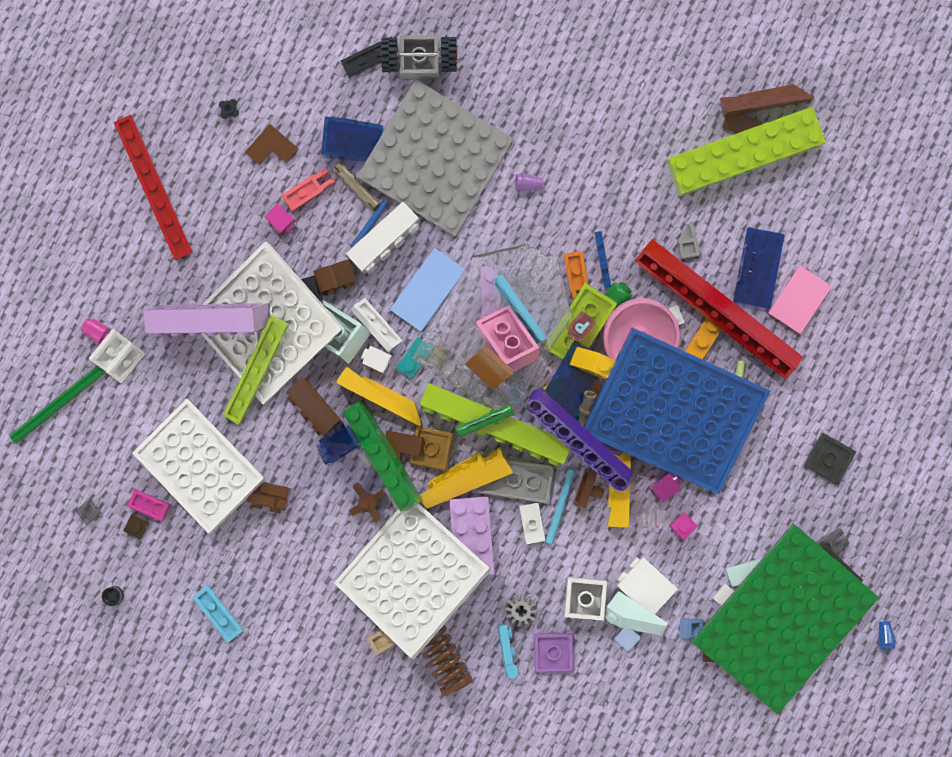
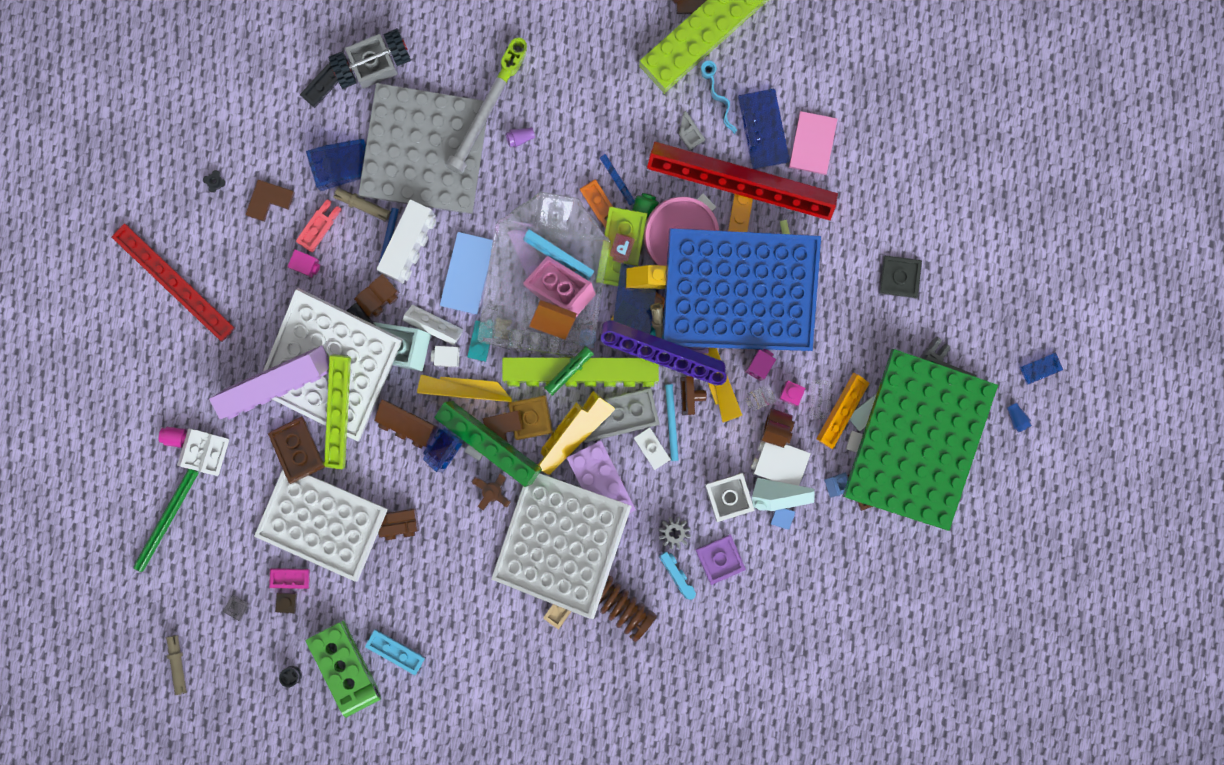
camera: 25 degrees left, 0 degrees up
(12, 542) = (176, 664): none -> dark tan pin
(157, 637) = (348, 698): none -> bright green hinge
(203, 389) = (296, 450): none -> reddish brown tile
(460, 184) = (456, 162): none -> flat silver piece
(657, 553) = (778, 428): none -> reddish brown brick
(724, 561) = (842, 411): none -> light orange plate
(734, 192) = (711, 66): none -> medium azure flag
(926, 598) = (1041, 368): none -> clear blue tile

